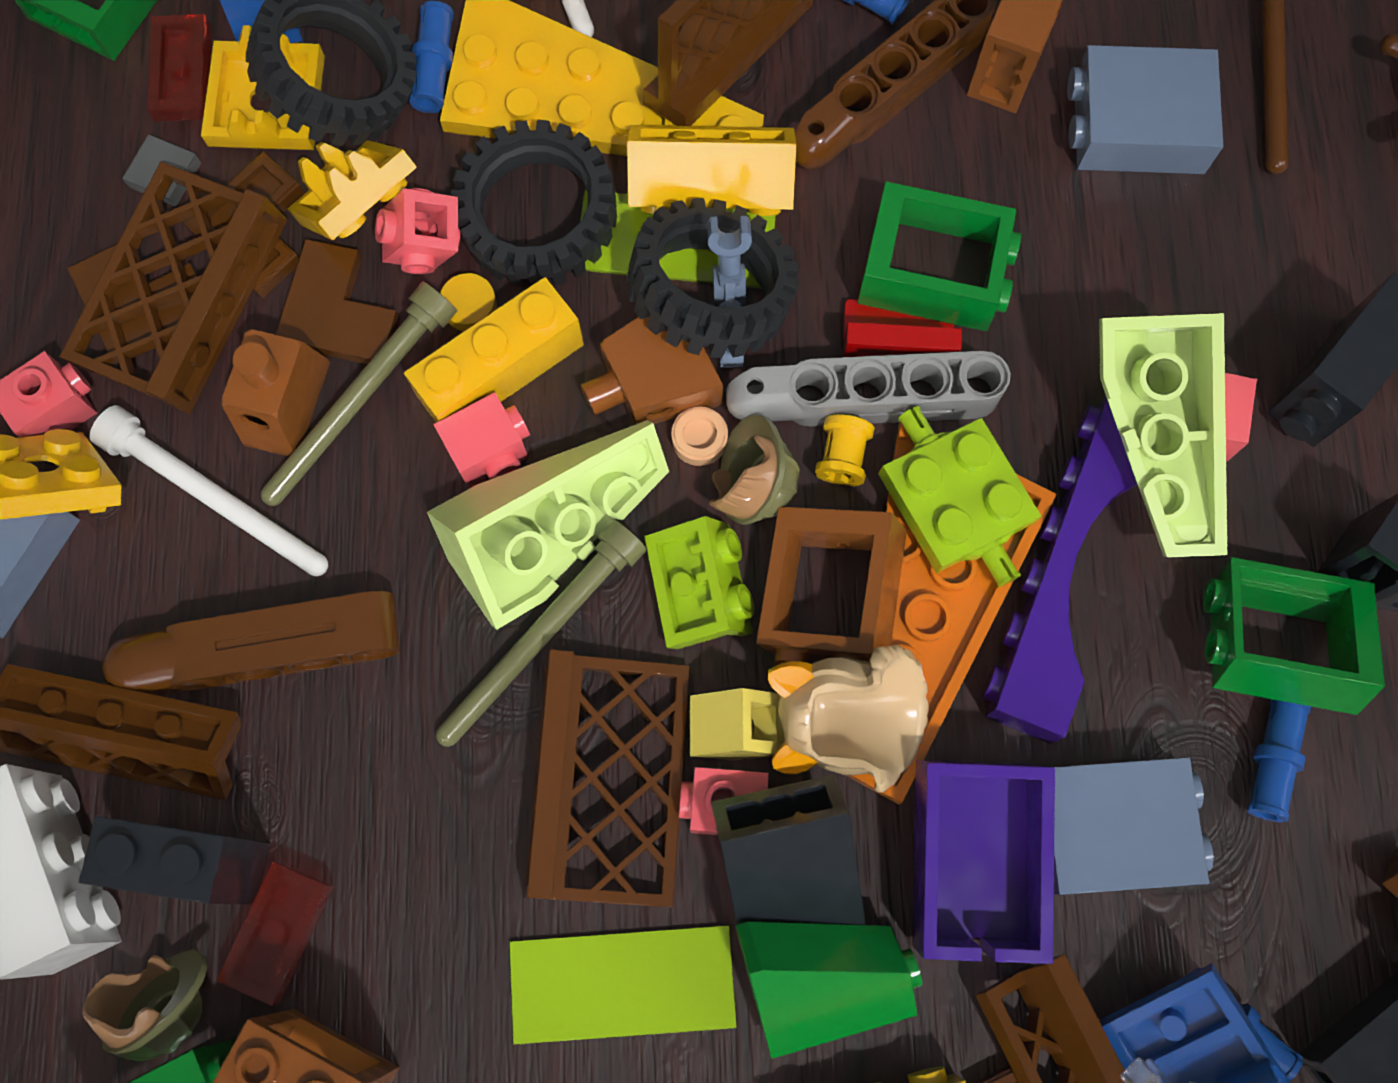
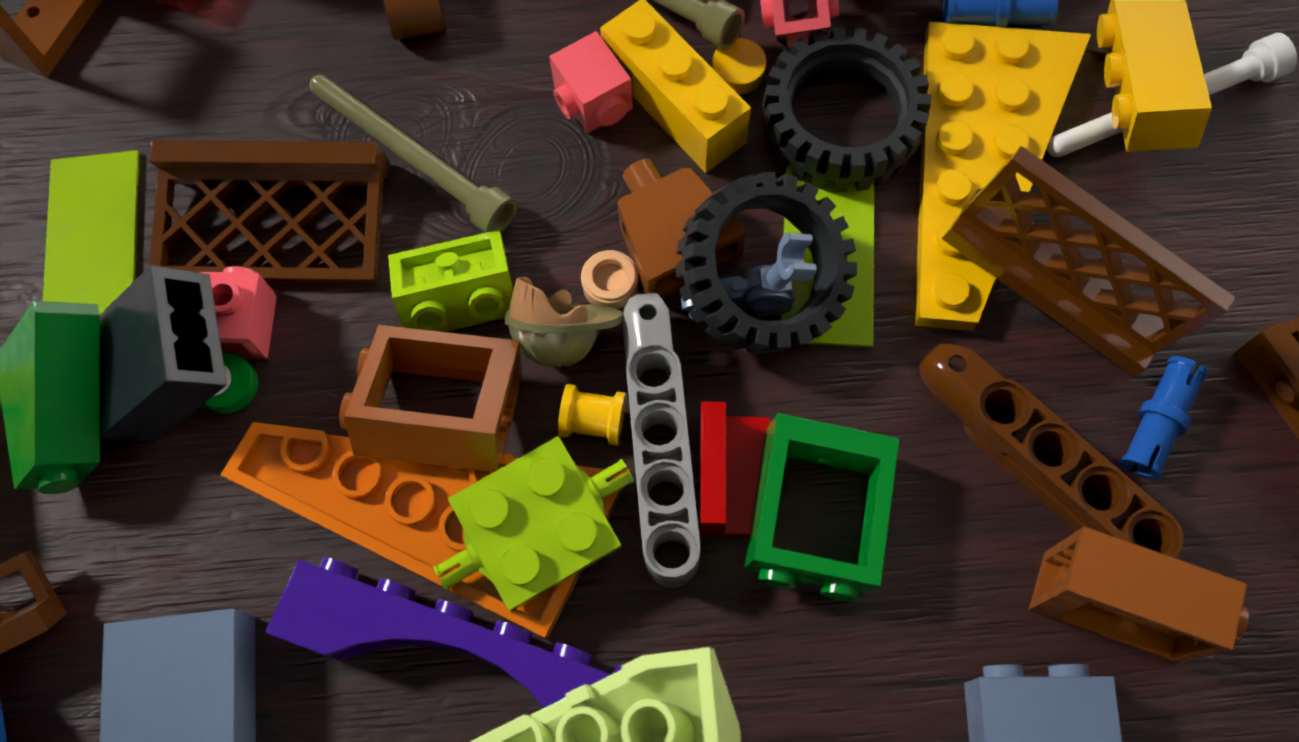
camera: 90 degrees right, 5 degrees down
(531, 524) = (507, 129): yellowish green wedge -> none
(720, 163) = (900, 264): yellow brick -> none
(725, 721) = (301, 314): light yellow brick -> none
(852, 714) = (290, 411): tan hair -> none
(984, 861) = (150, 543): dark purple piece -> none

